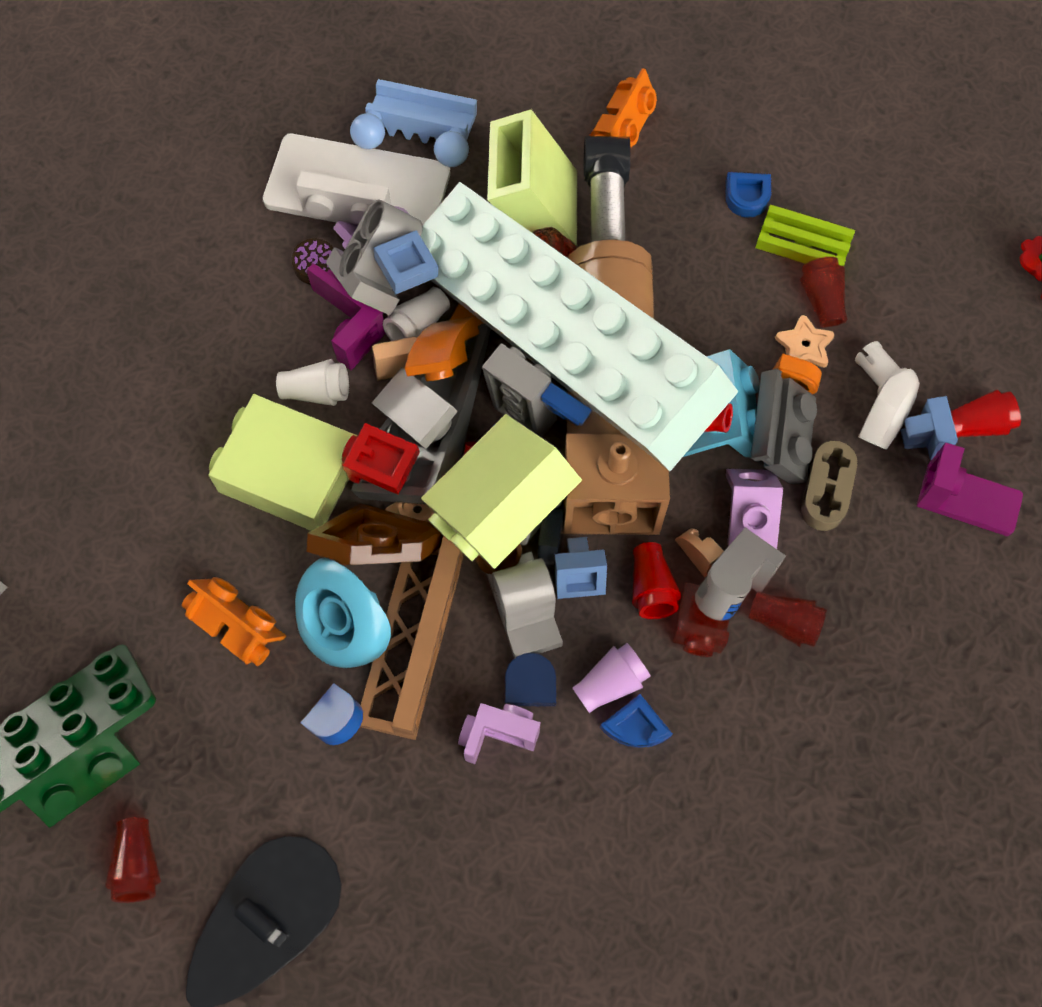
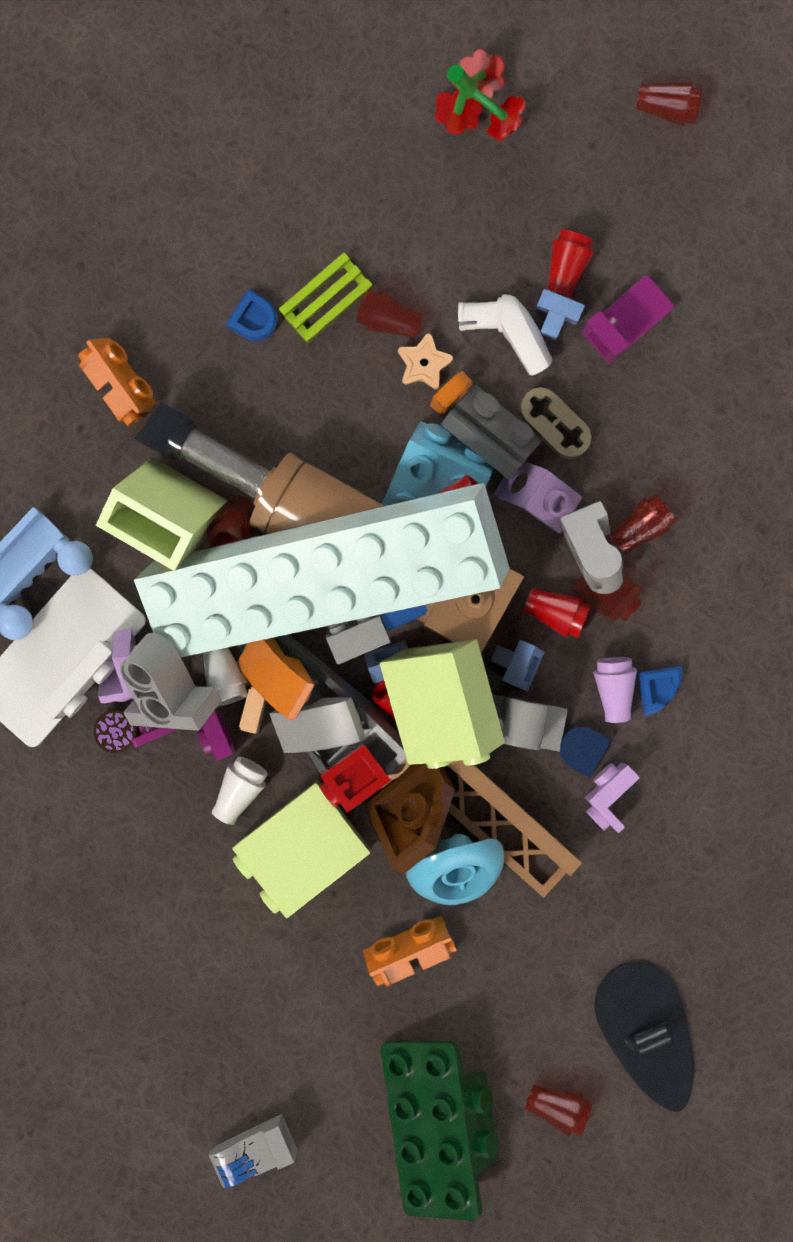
camera: 60 degrees left, 20 degrees up
(334, 717) = (531, 911): tile -> none
(406, 262) = (193, 669): medium blue tile -> none
(700, 552) = (552, 559): light nougat tile -> none

